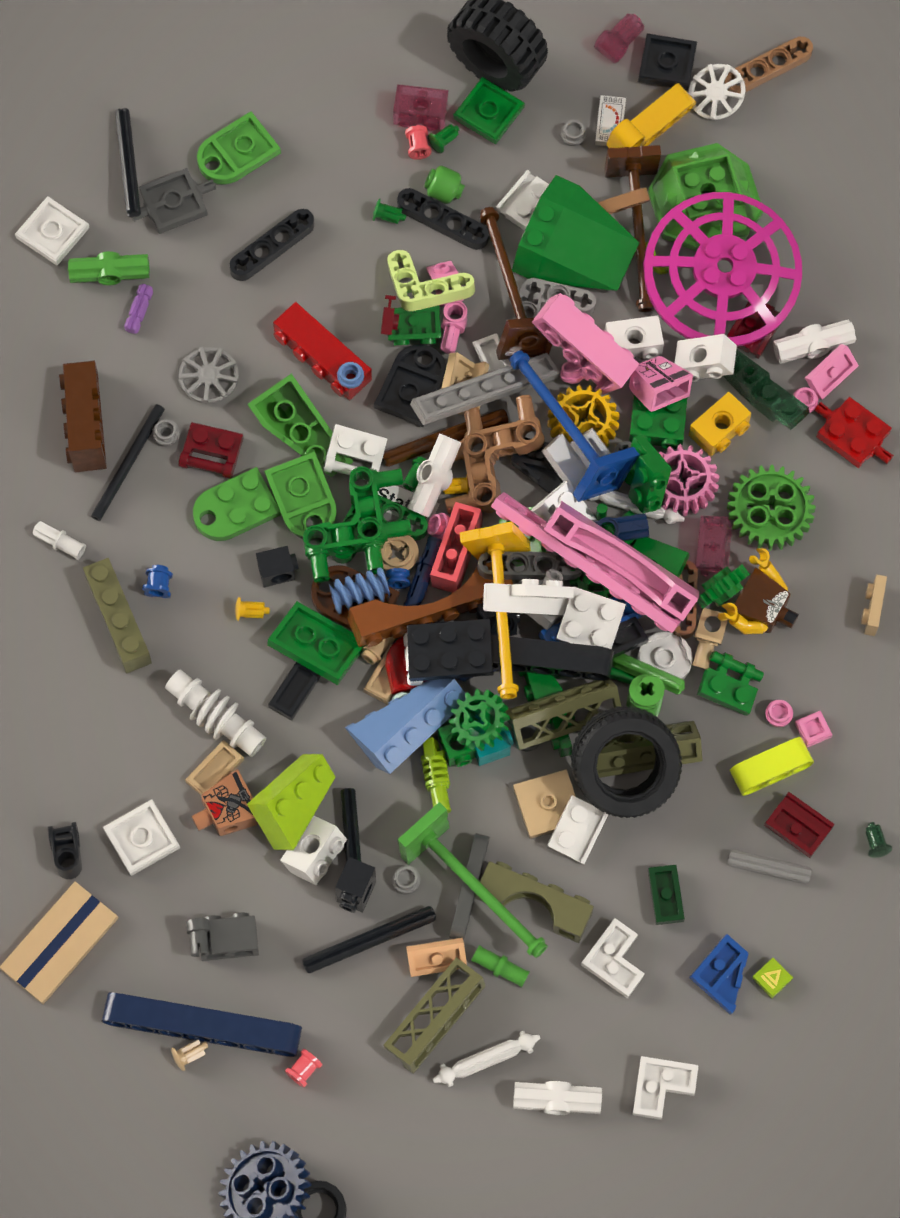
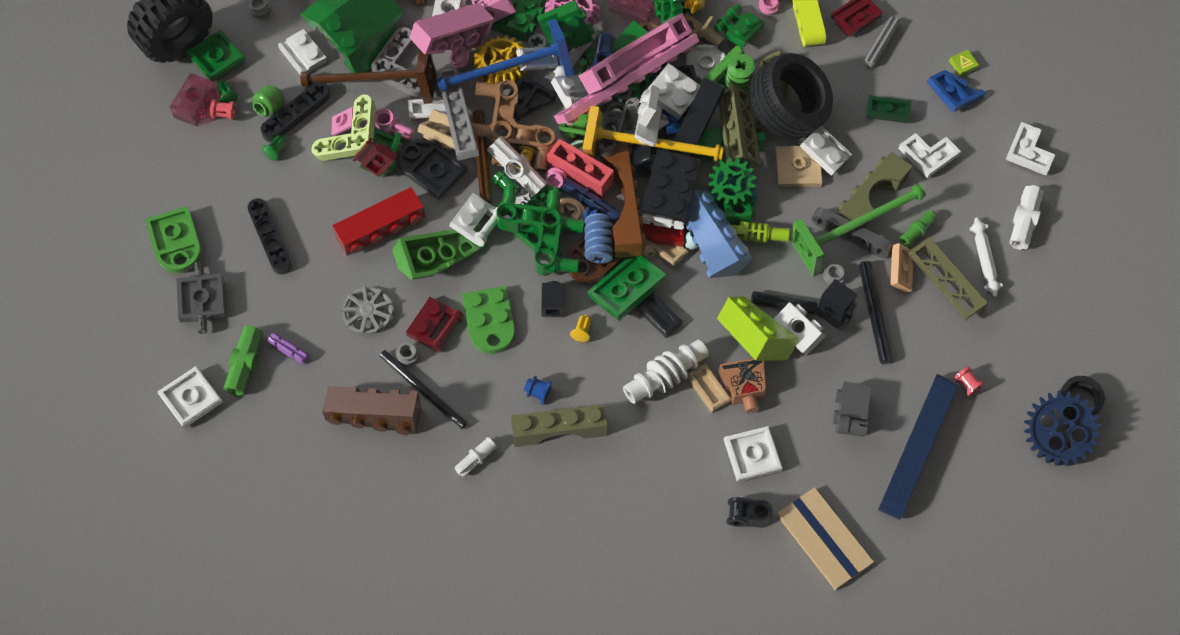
camera: 75 degrees left, 5 degrees down
(128, 163) = (152, 321): black axle -> none
(189, 1053) = (939, 461): tan piece -> none
(301, 493) = (498, 265): bright green plate -> none
(350, 368) = (413, 194): medium blue plate -> none
(565, 460) = (534, 78): white tile -> none

